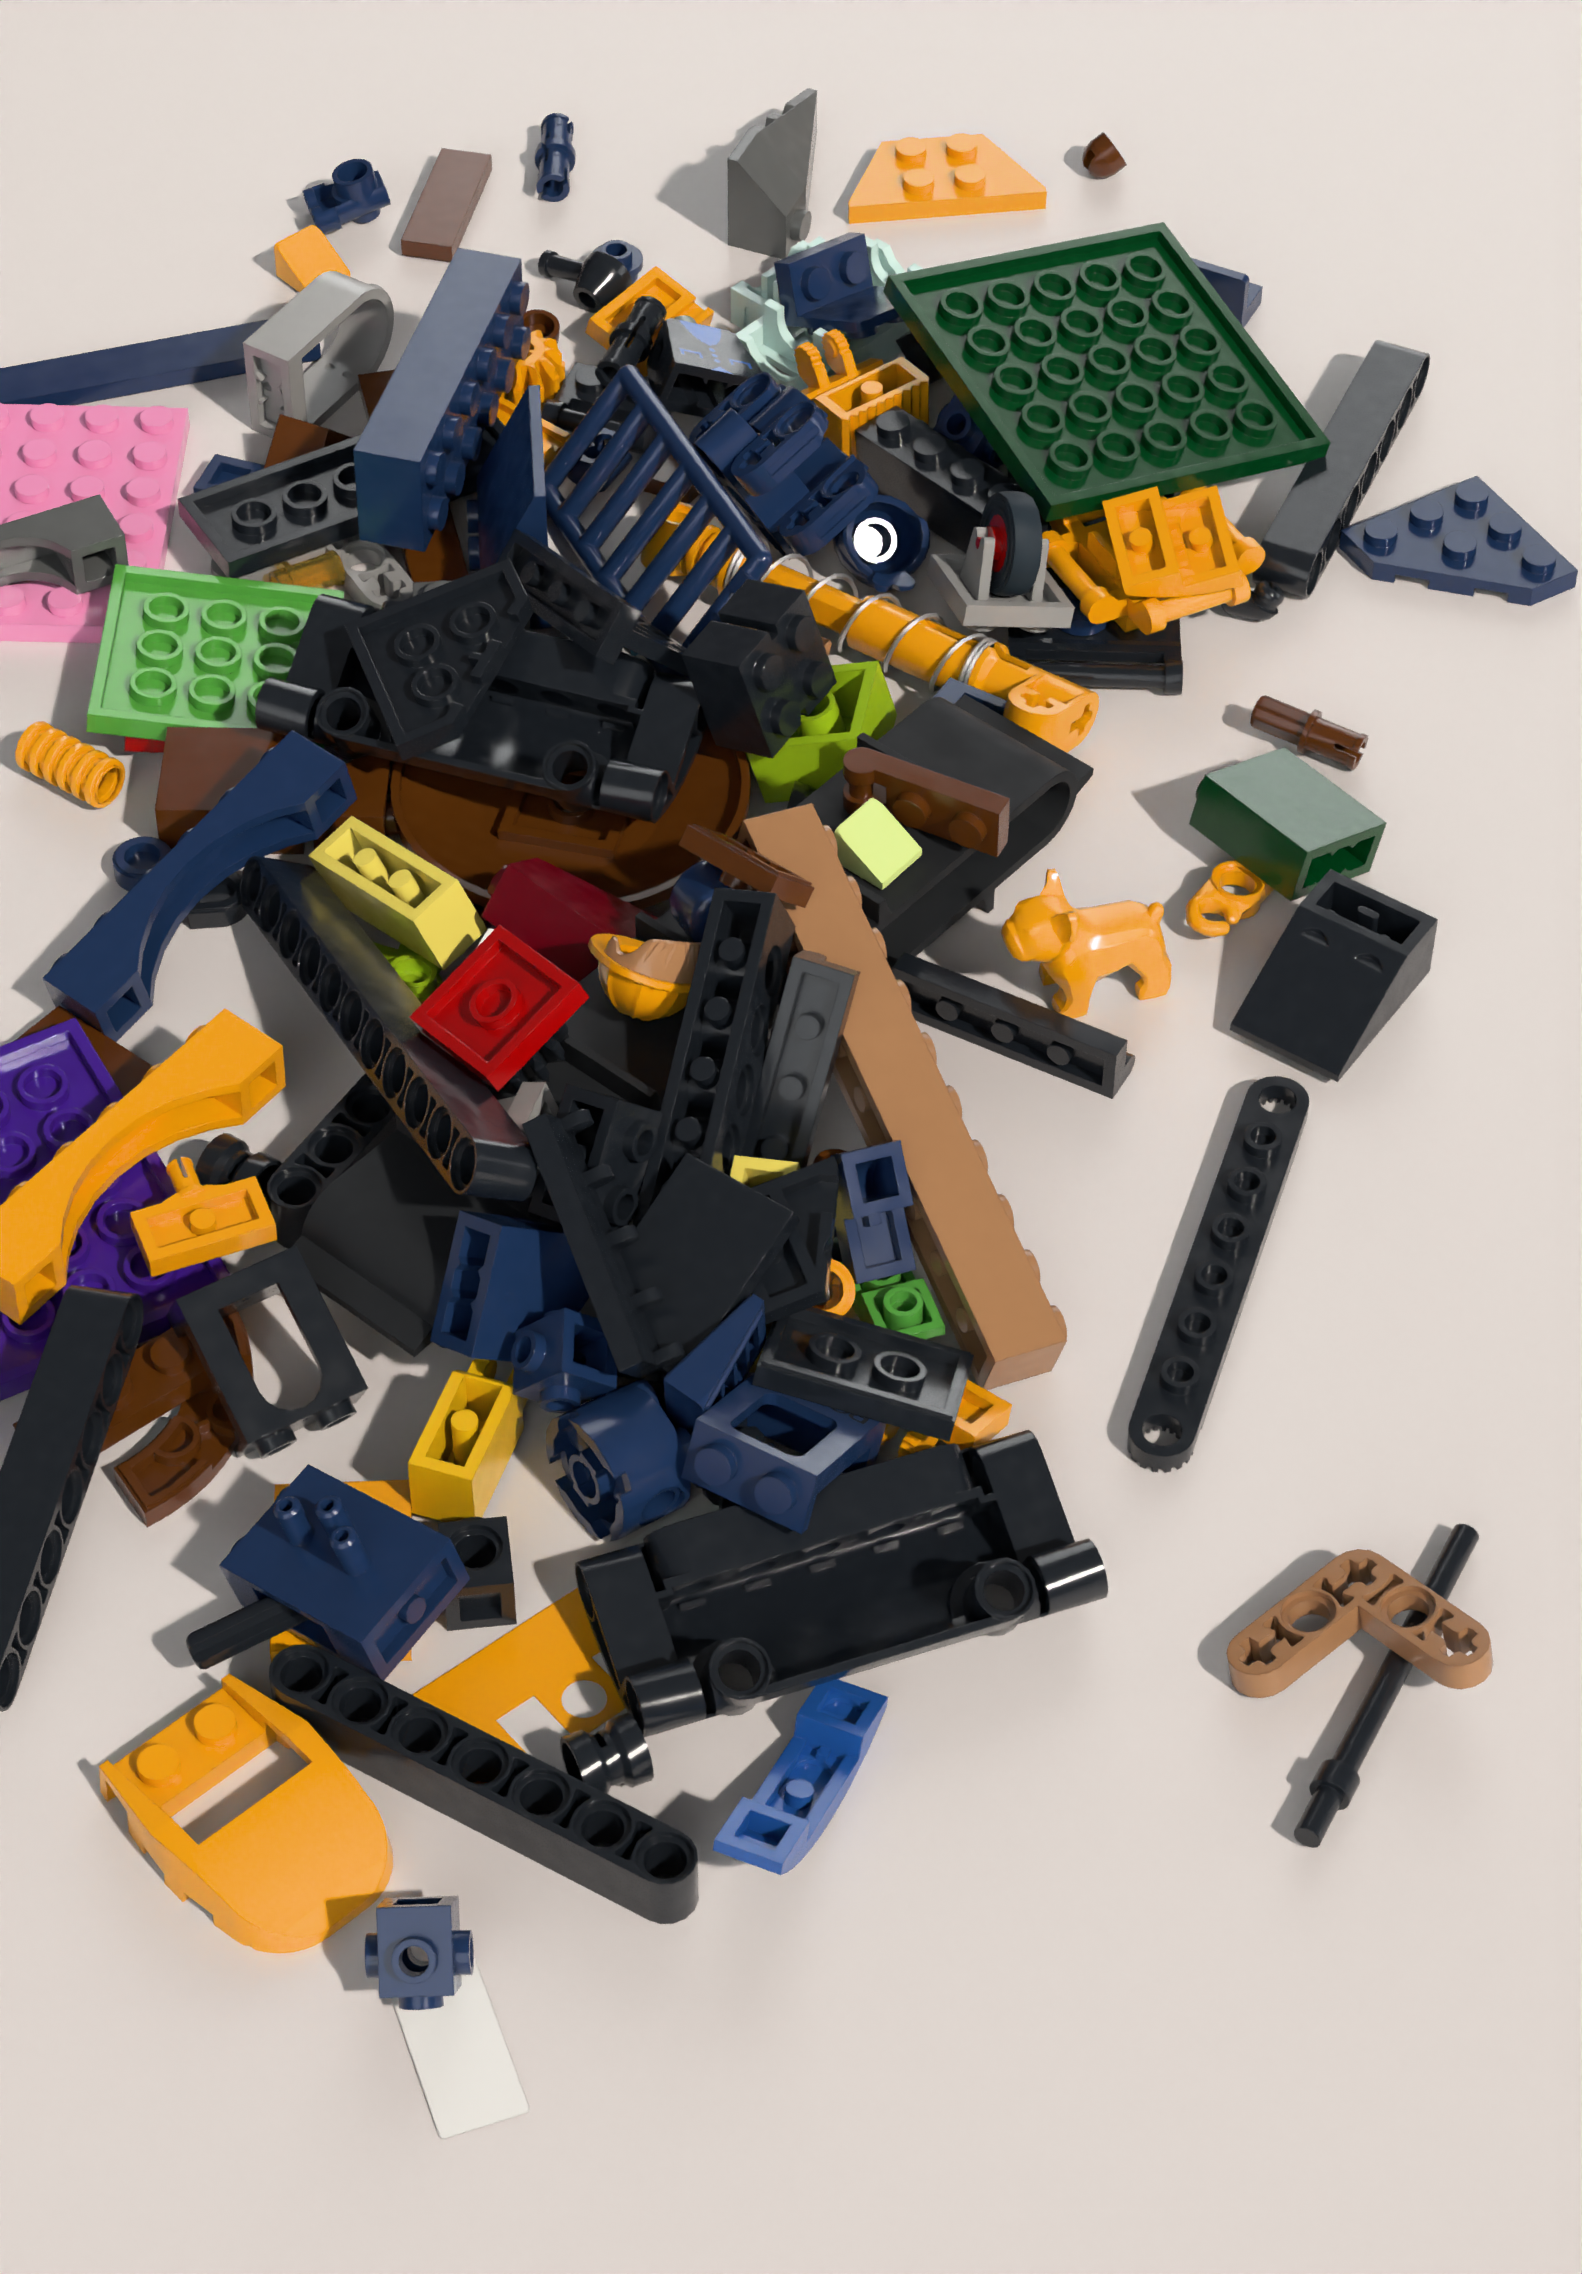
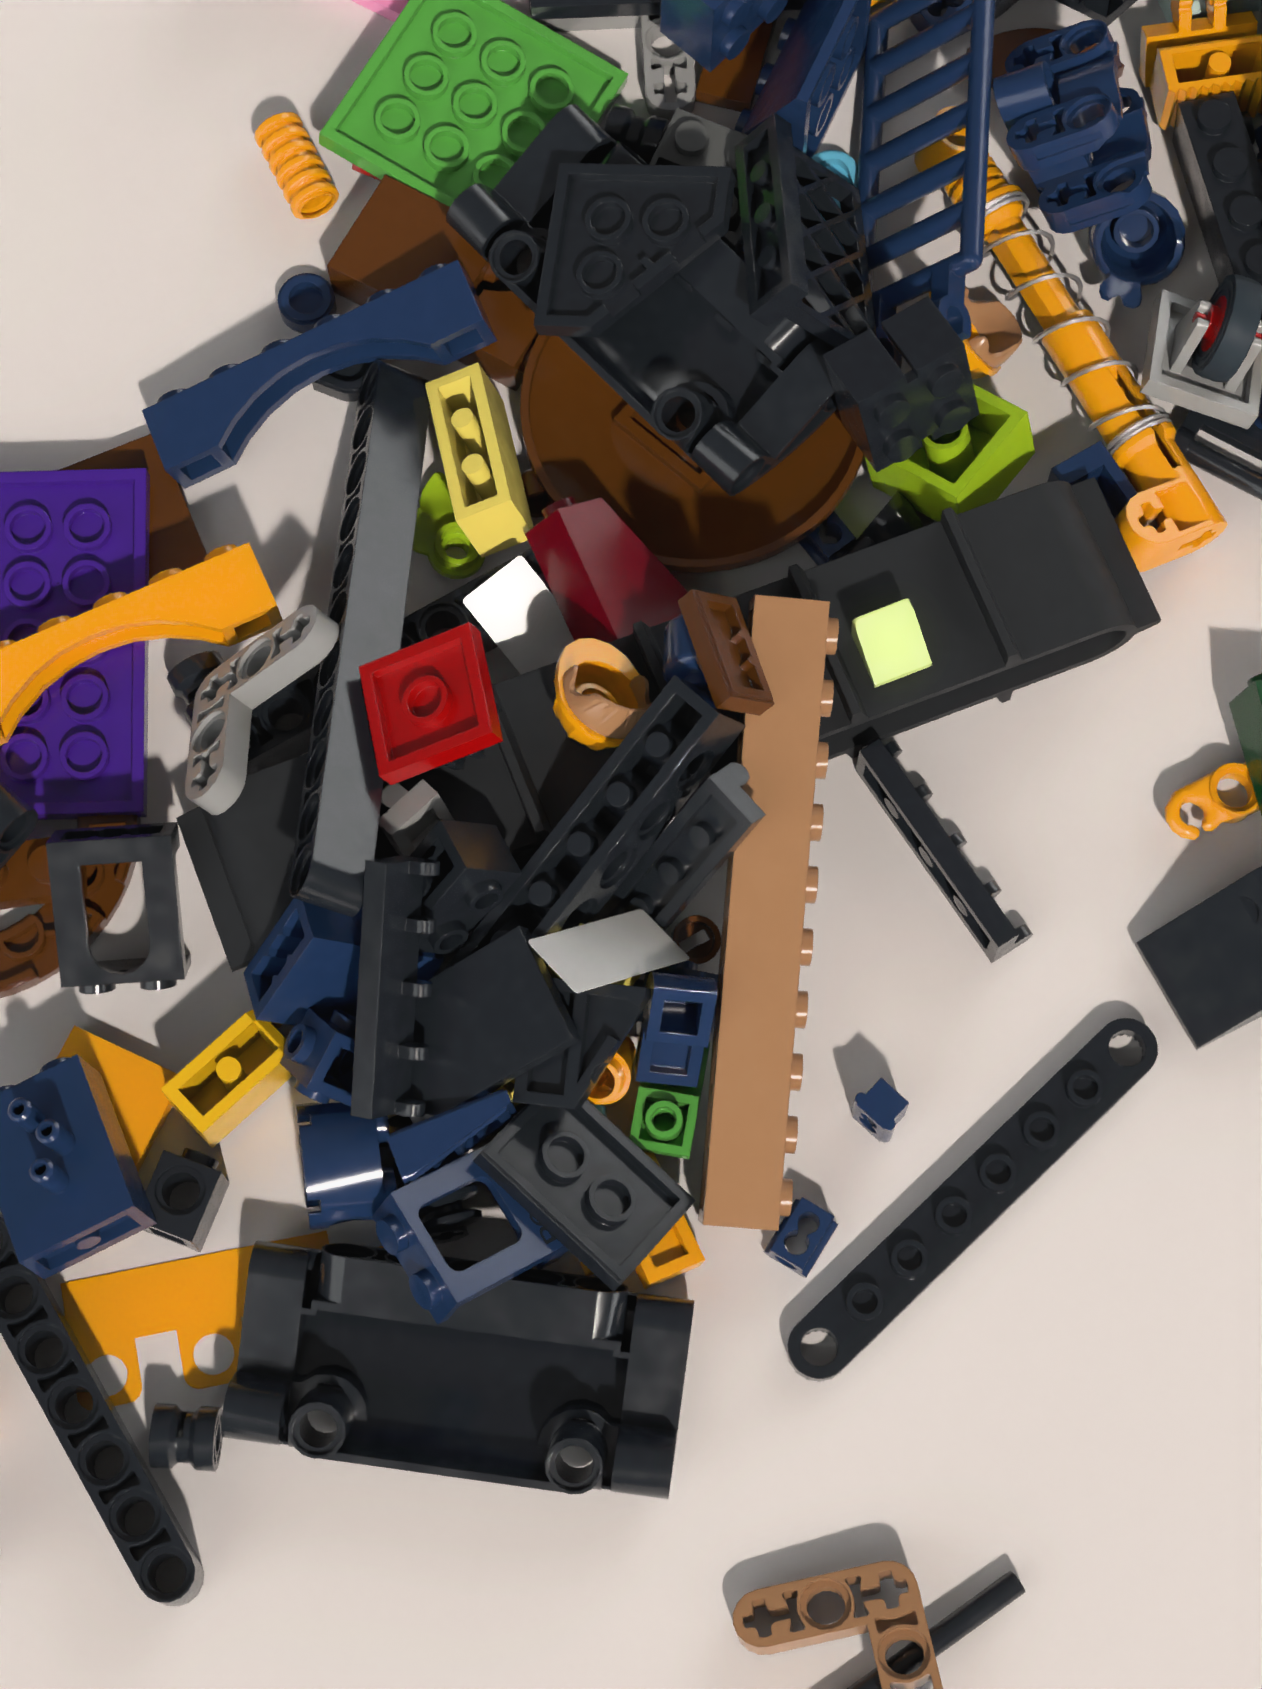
camera: 30 degrees right, 25 degrees up
(201, 1221) = (132, 740): light orange plate -> none
(279, 1138) = (234, 689): none -> light grey beam
(317, 572) = (610, 37): clear yellow pin -> none
(773, 1157) = (608, 950): none -> white sticker
(807, 1779) = (316, 1552): blue slope -> none
(927, 800) = (956, 617): reddish brown plate -> none
(1088, 944) = (1043, 810): light orange animal -> none
(1092, 1212) = (883, 1107): none -> dark blue piece
(1093, 1338) = (815, 1241): none -> dark blue piece

